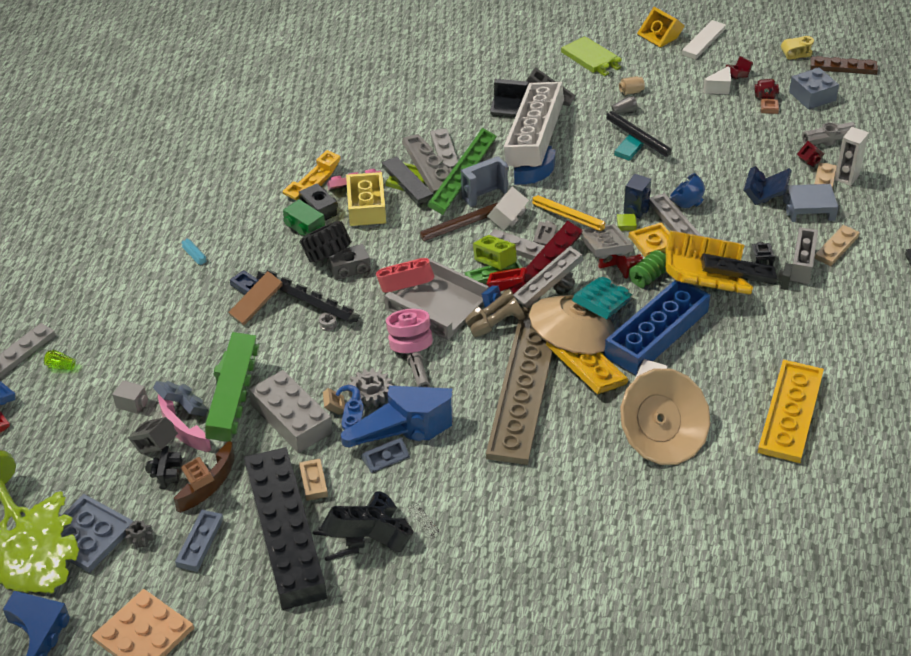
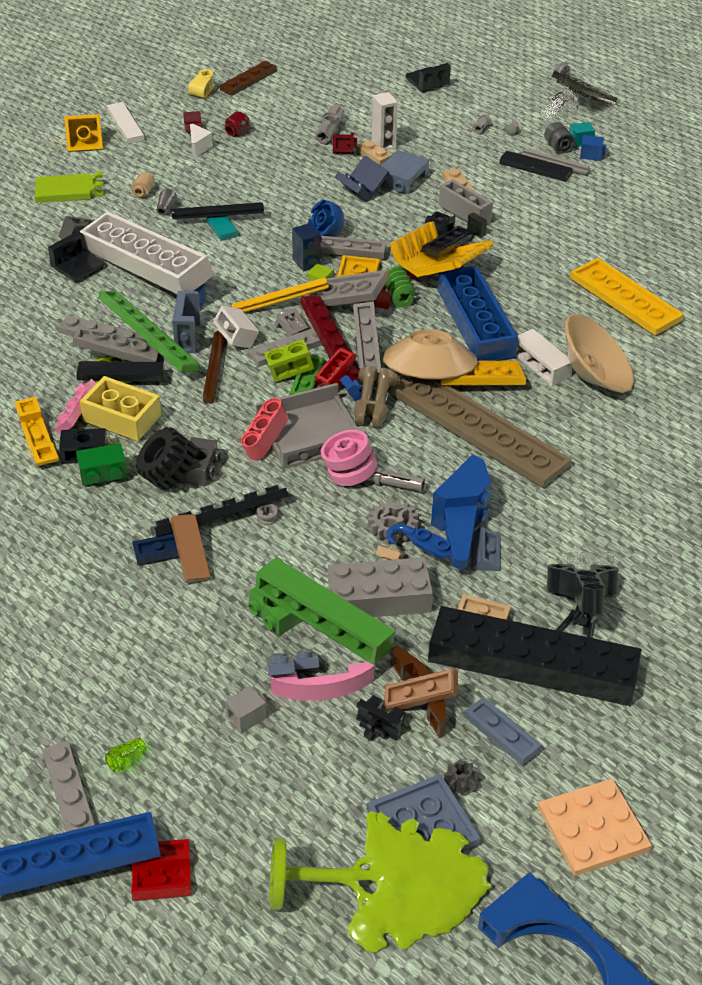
camera: 60 degrees left, 0 degrees up
(153, 435) = (334, 706): dark grey brick -> none
(193, 251) = (50, 572): medium azure axle -> none
(602, 297) = (422, 322): teal plate -> none
(769, 106) = (255, 135): nougat tile -> none
(813, 88) = (265, 102): sand blue brick -> none

